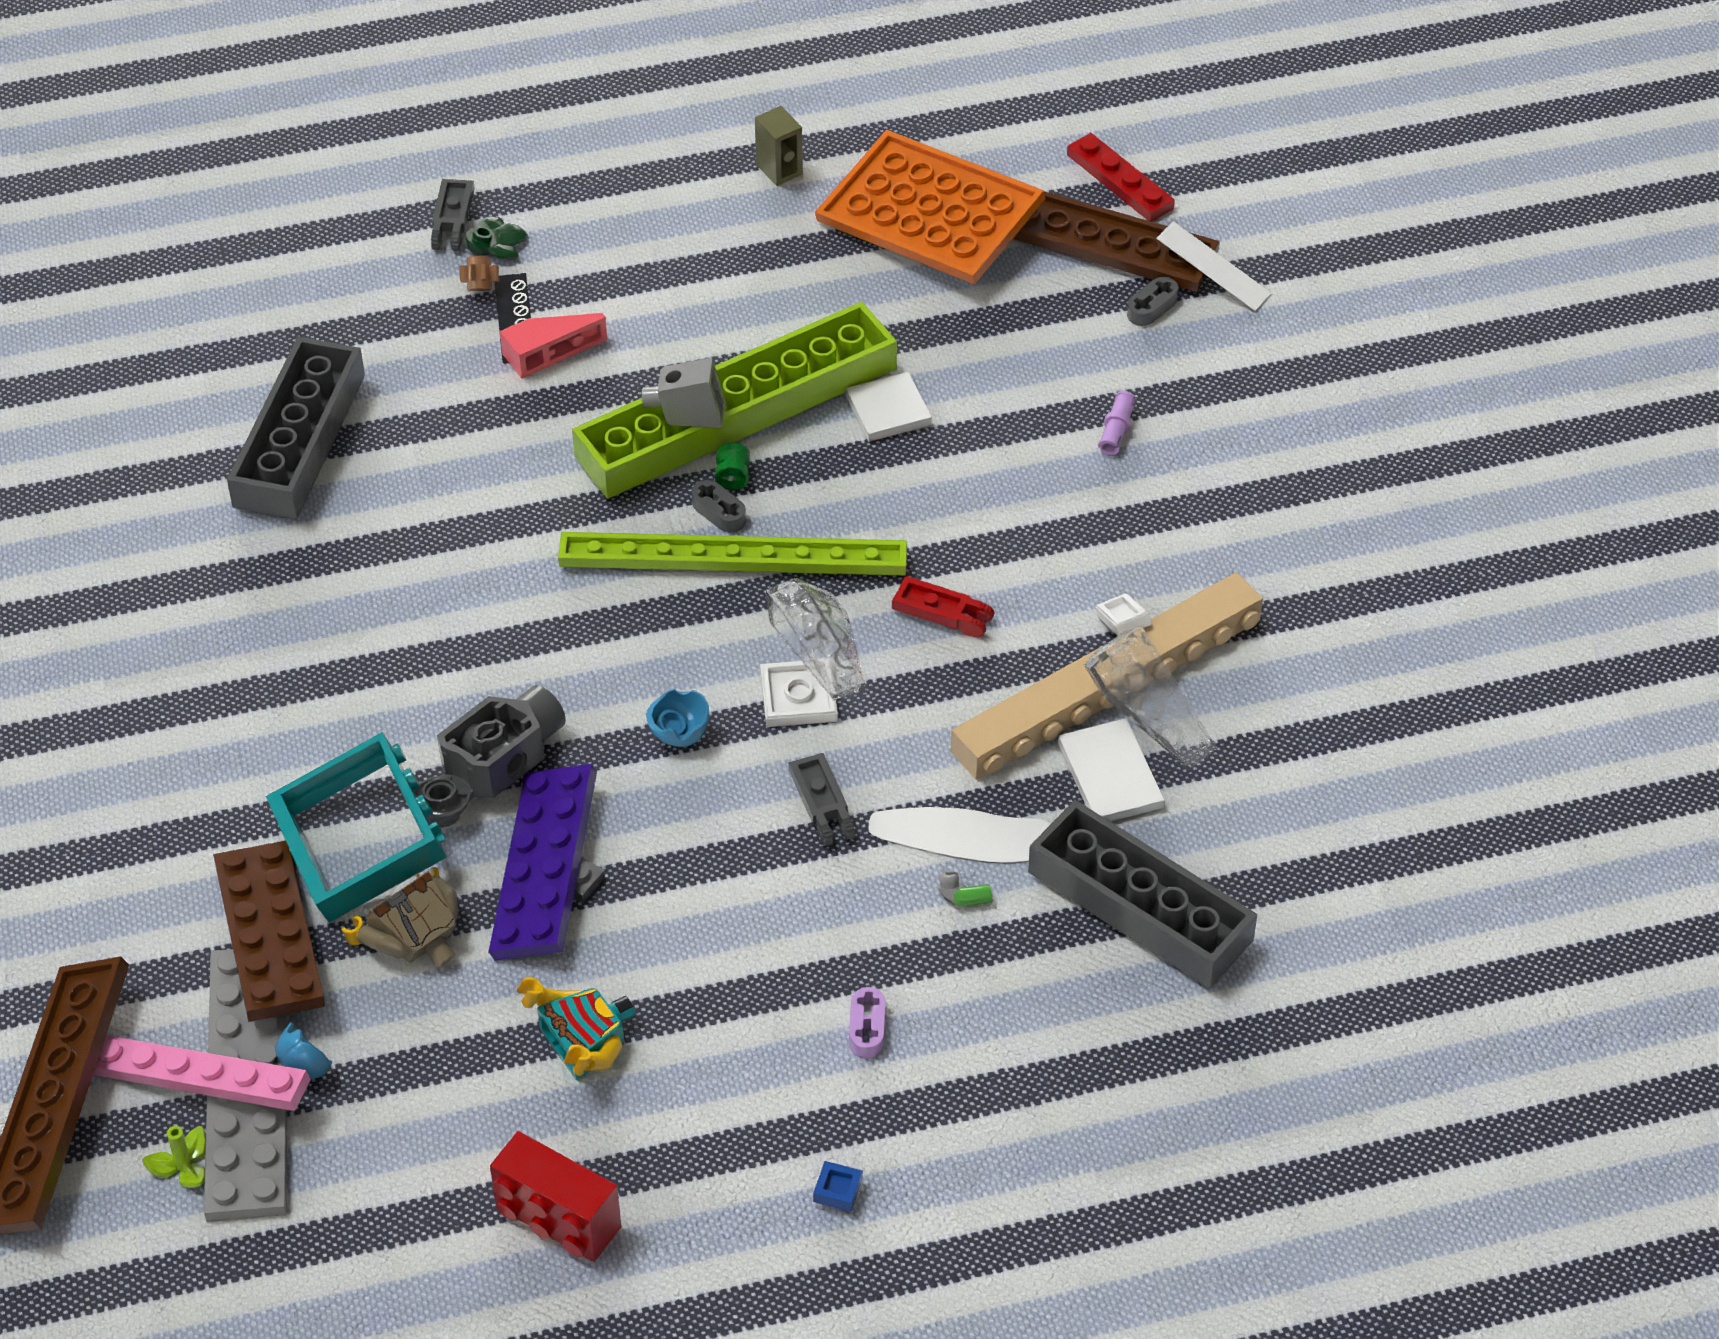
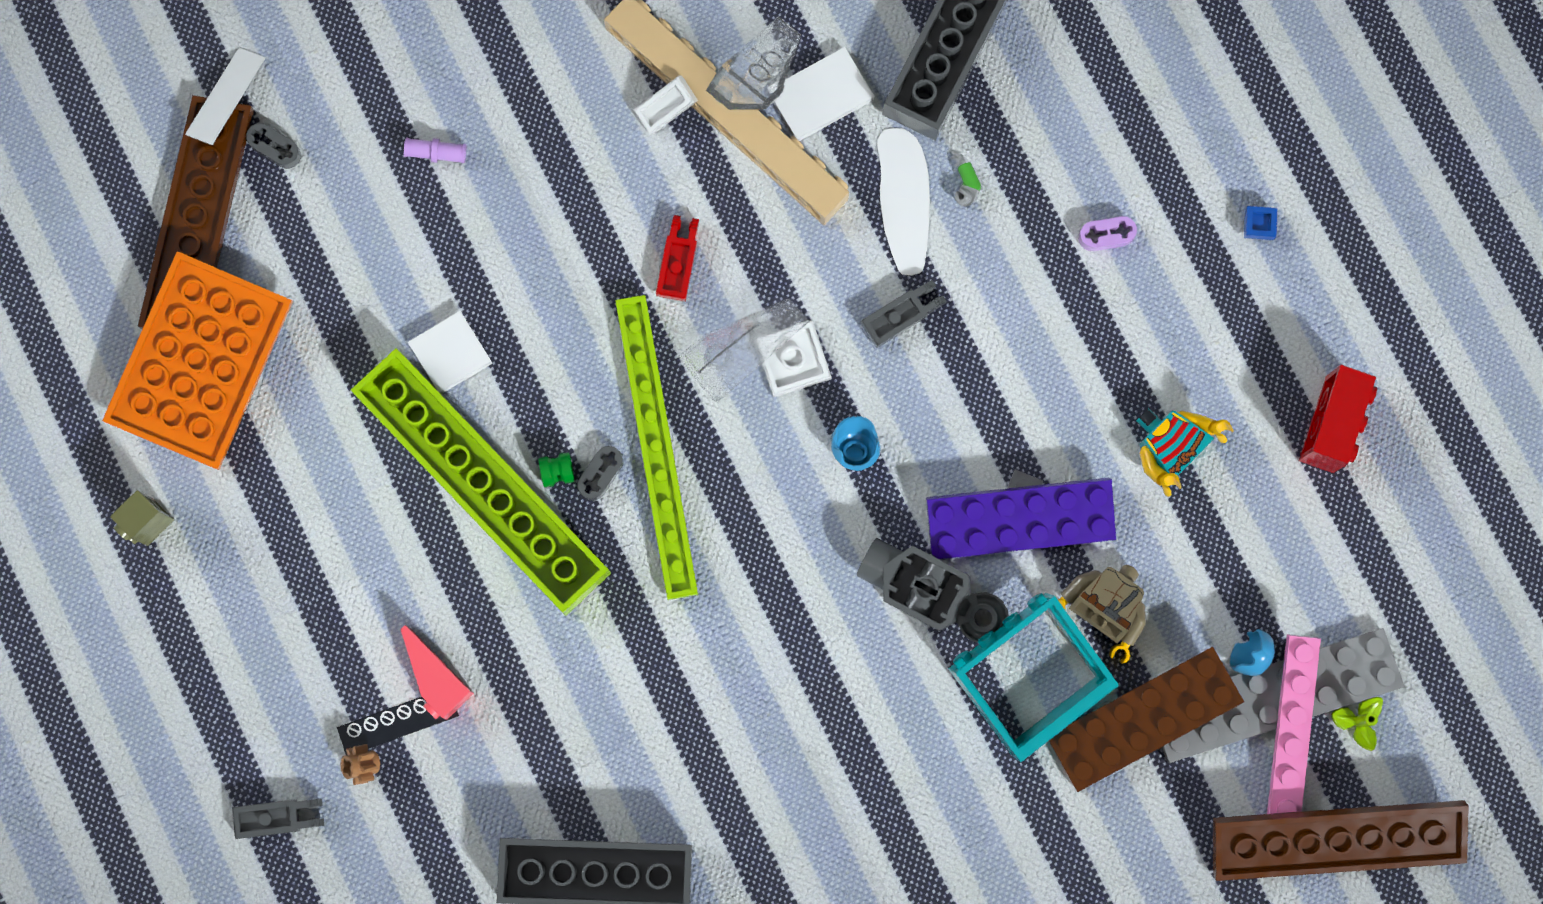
camera: 105 degrees left, 30 degrees up
(495, 238) = (297, 762): dark green plate -> none
(688, 394) = (521, 497): light grey torso -> none
(1120, 177) = (111, 201): red plate -> none

